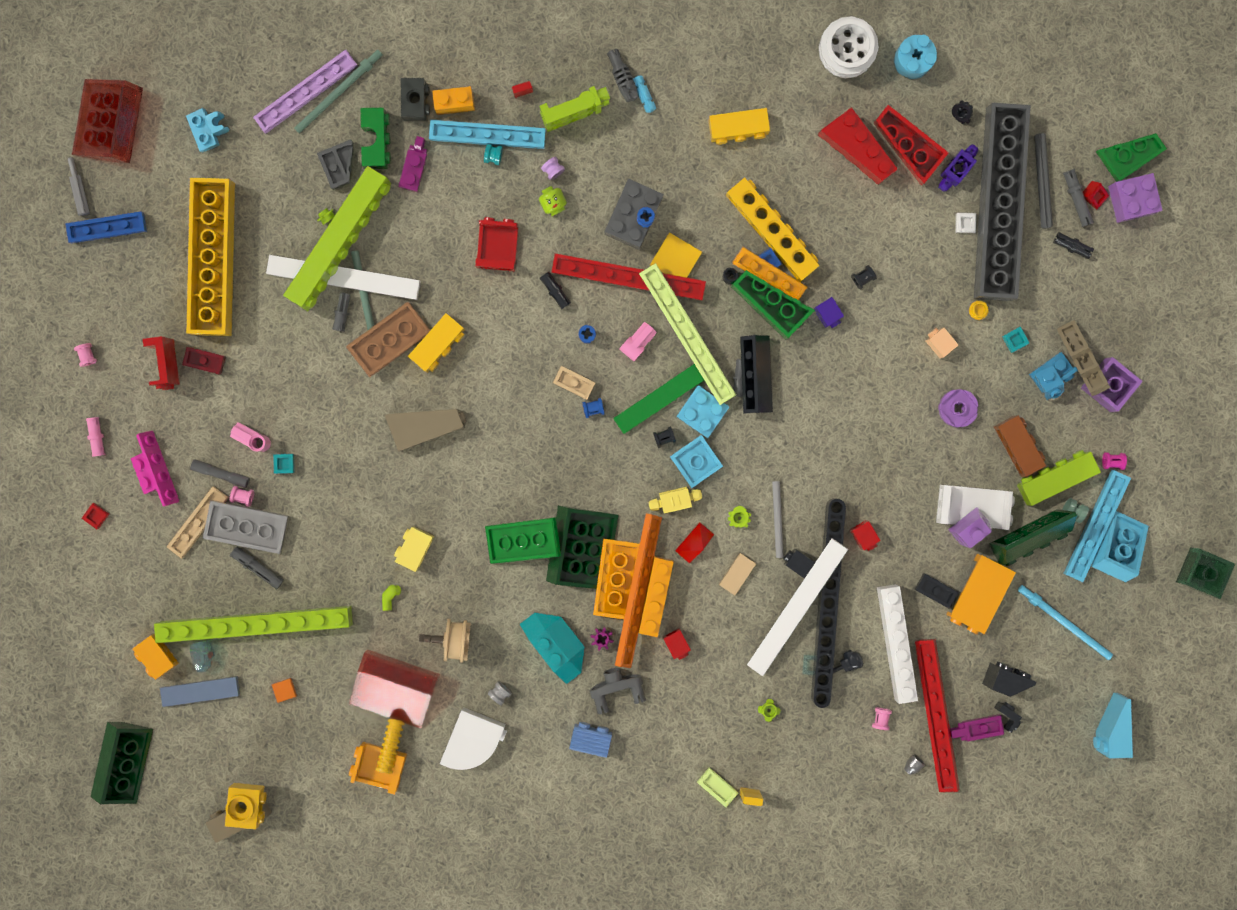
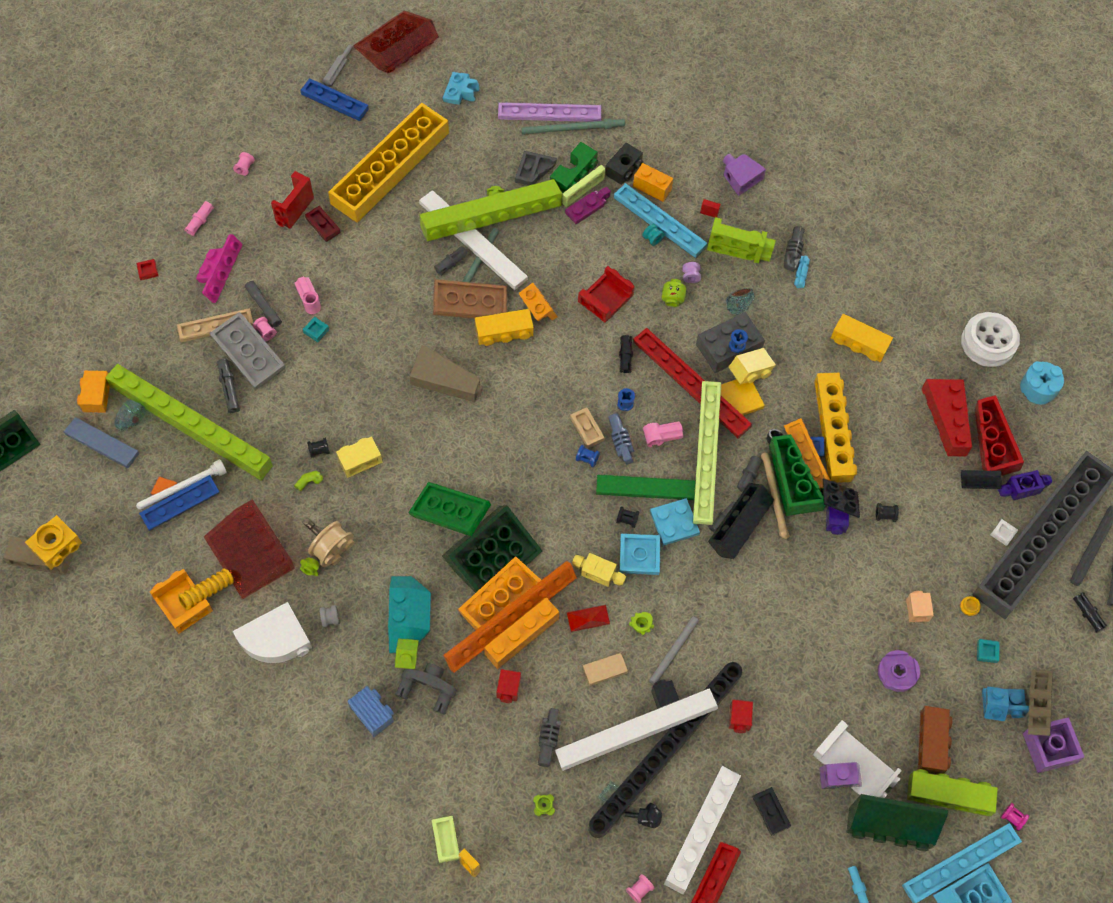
camera: 35 degrees right, 25 degrees down
(307, 693) = (179, 503): none -> blue plate
(311, 644) = (215, 469): none -> white piece
(375, 565) = (318, 447): none -> black bush
(396, 150) = (583, 186): none -> yellowish green tile
(447, 299) = (537, 303): none -> light orange bracket
(452, 666) = (309, 566): none -> lime plate
(523, 28) = (742, 172): none -> medium lavender torso
(583, 679) = (406, 653): none -> lime brick
(607, 640) = (445, 631): magenta gear -> none
(609, 372) = (621, 439): none -> sand blue hinge
(613, 165) = (739, 300): none -> clear light blue rock
(668, 225) = (752, 366): none -> light yellow brick
(732, 324) = (749, 473): none -> dark grey axle
(735, 658) = (548, 737): none -> dark grey hinge
(736, 300) = (783, 532): none -> tan piece
(822, 296) = (840, 498): none -> black hinge
(922, 191) = (981, 479): none -> black tile
(960, 113) = (1056, 448): black animal -> none
(982, 595) = (810, 843): light orange panel -> none
(1081, 510) = (949, 834): sand green wheel -> none

